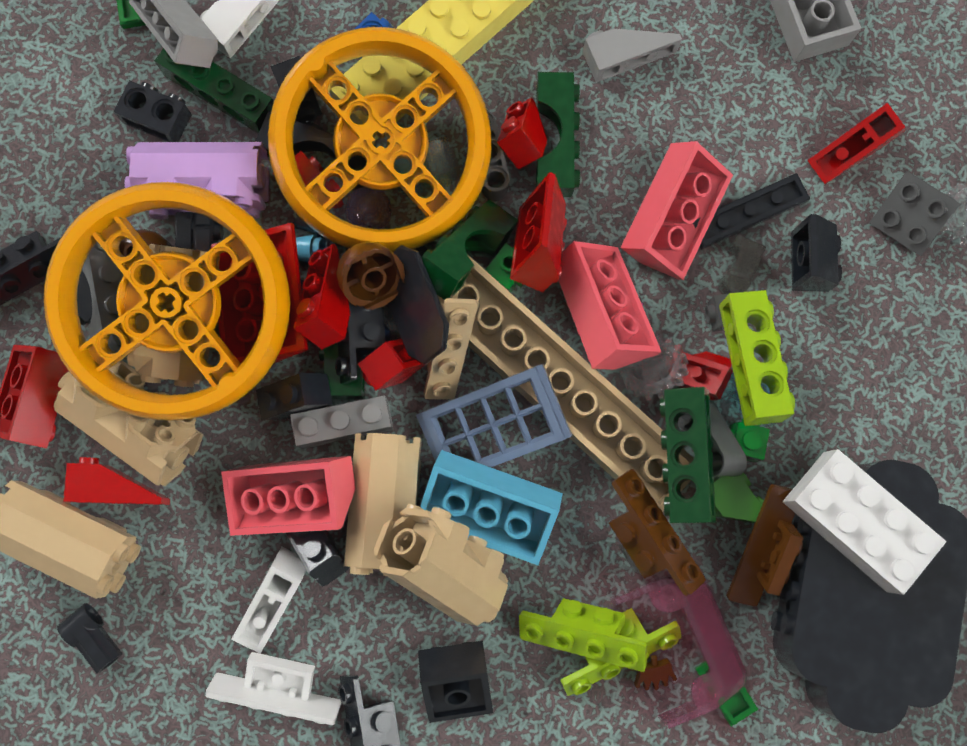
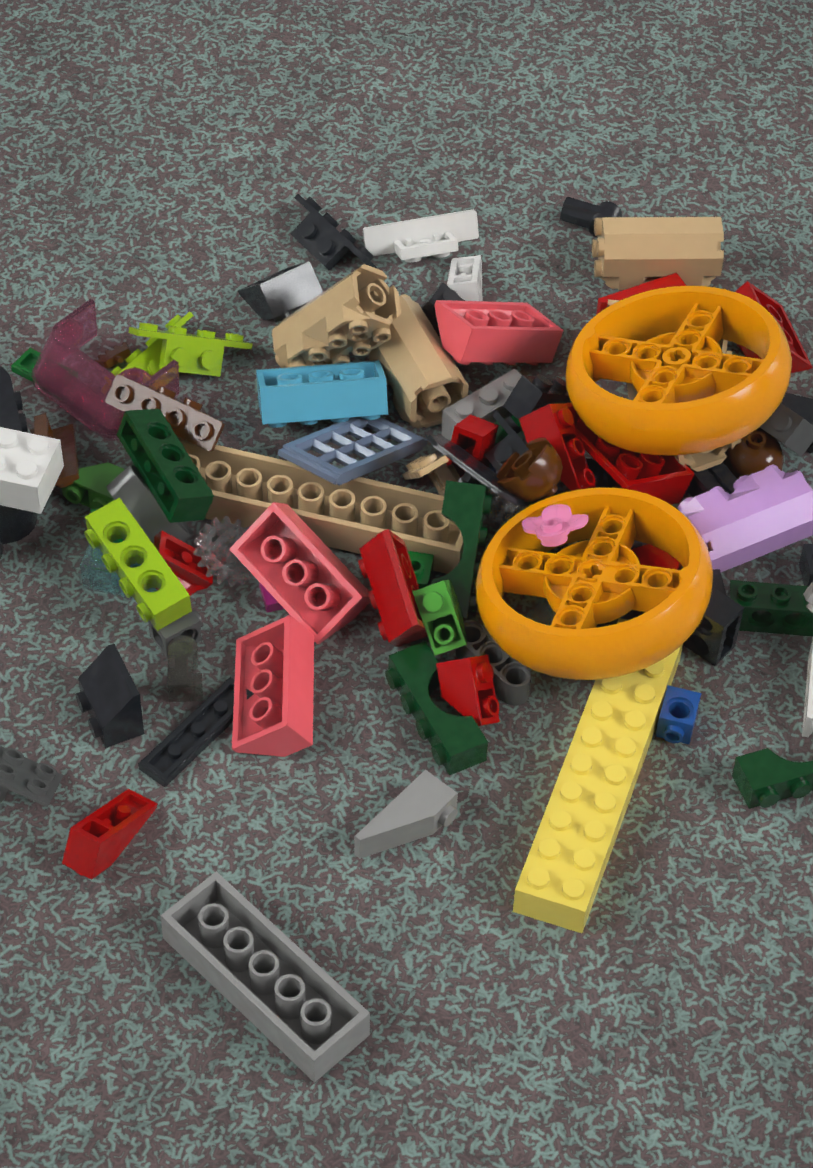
camera: 155 degrees right, 30 degrees down
(385, 197) = (554, 524): none -> bright pink plate
(515, 196) = (441, 616): none -> bright green slope

